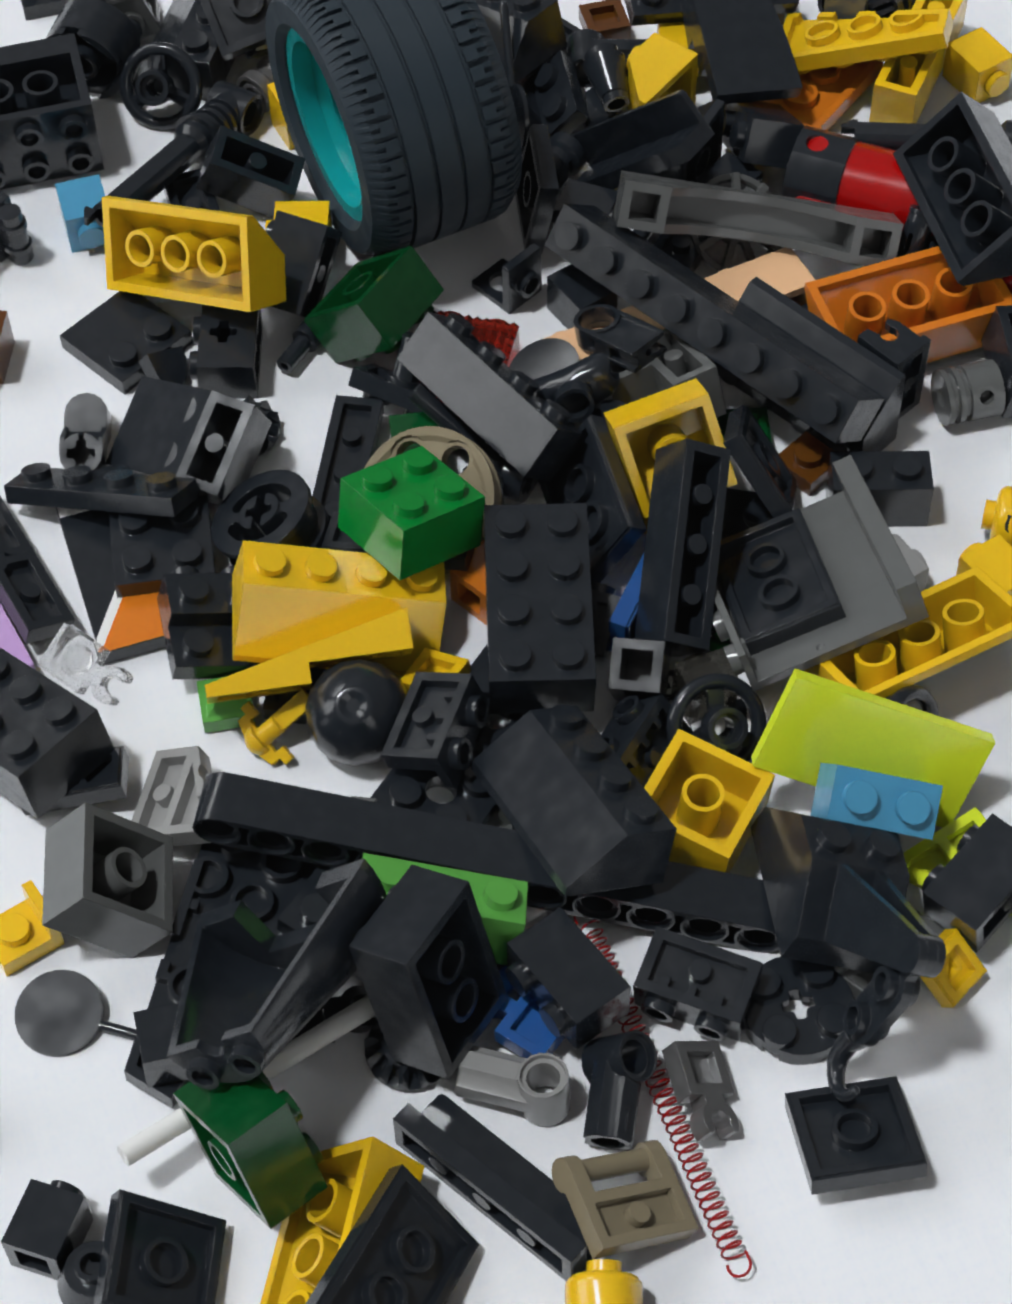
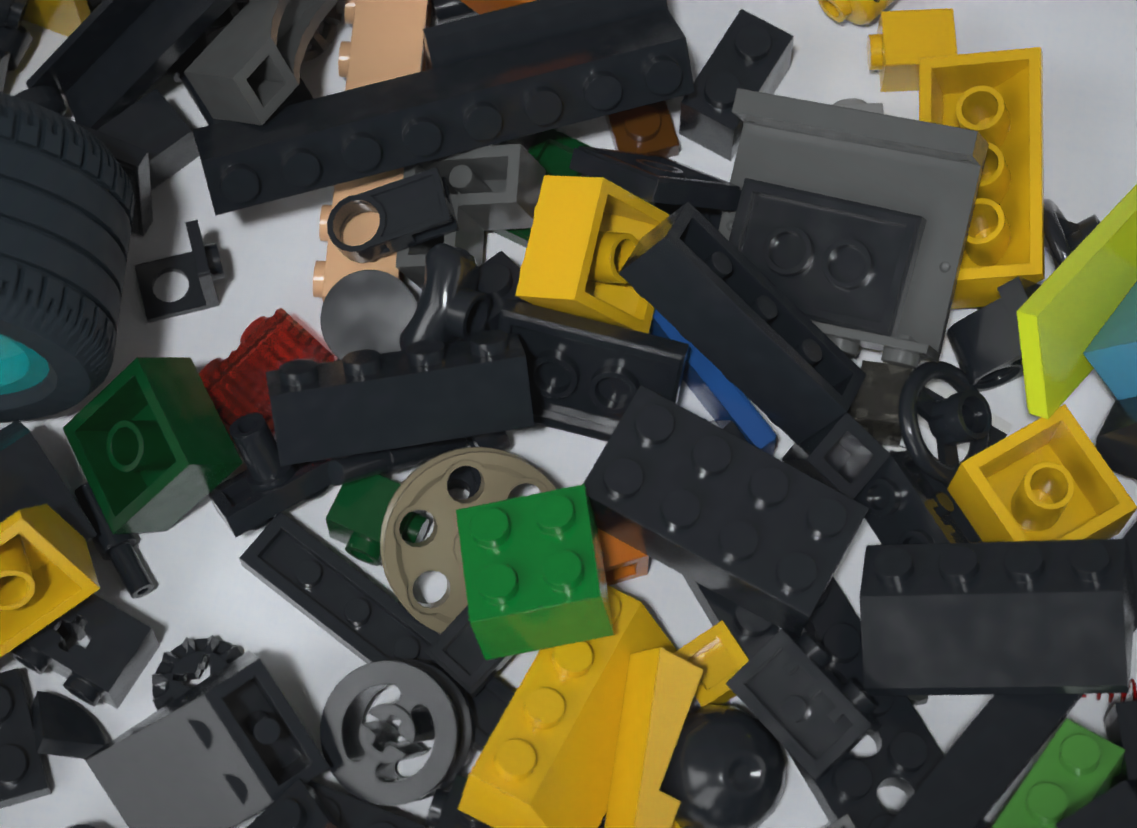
camera: 60 degrees left, 15 degrees up
(572, 291) = (276, 228): black brick -> none

